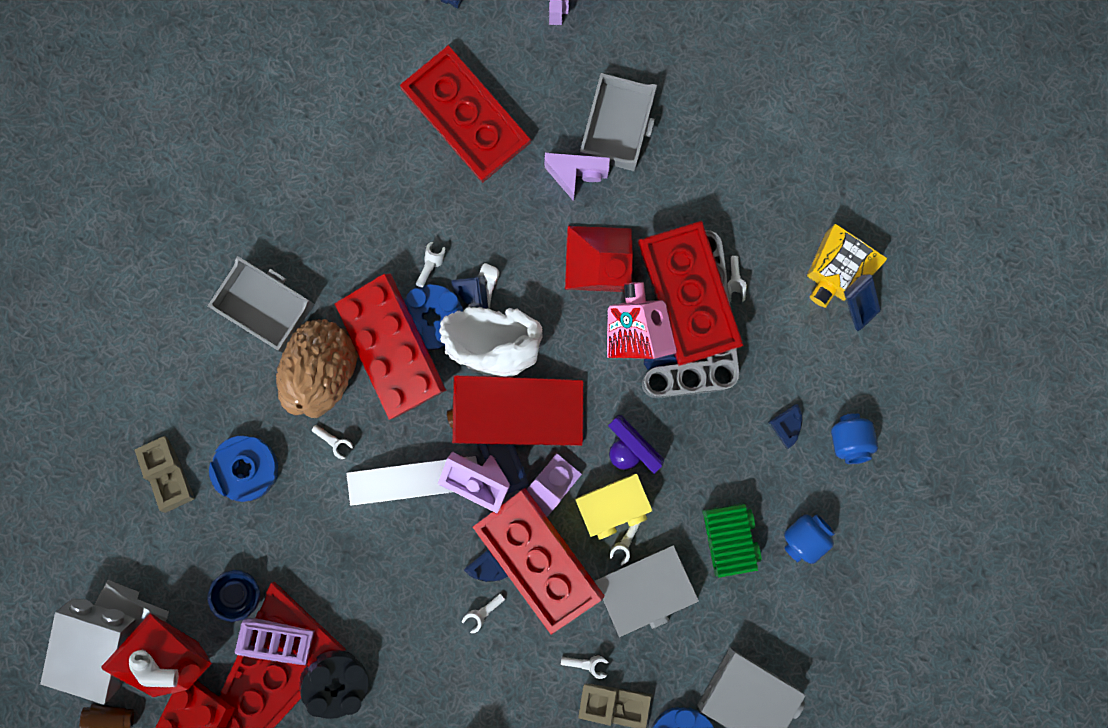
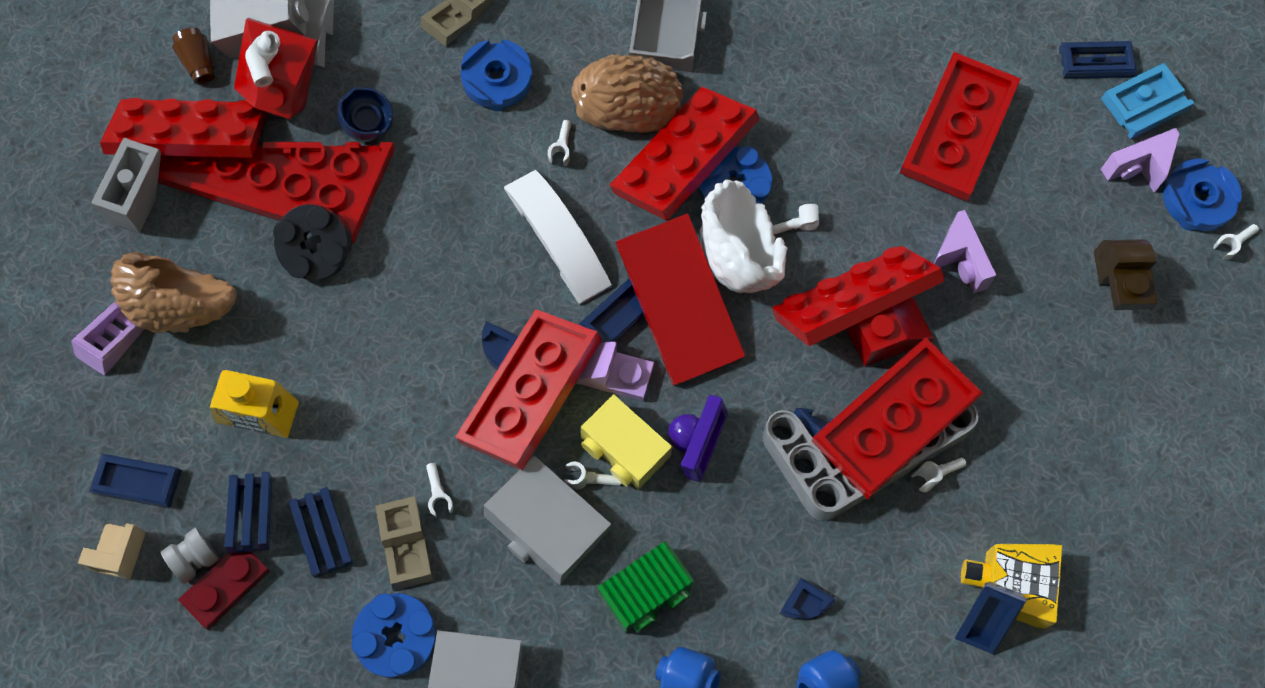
camera: 65 degrees right, 15 degrees down
(258, 651) = (333, 141): lavender slope -> none
(431, 260) = (794, 158): white hand -> none
(472, 291) = (783, 207): dark blue tile -> none
(478, 483) = (585, 283): lavender slope -> none
(483, 612) = (443, 359): white hand -> none
(576, 271) = (857, 294): none -> red plate
(618, 121) = (1041, 275): light grey container -> none
(639, 327) = (833, 377): torso -> none
(646, 53) = (1128, 271): none -> dark brown brick

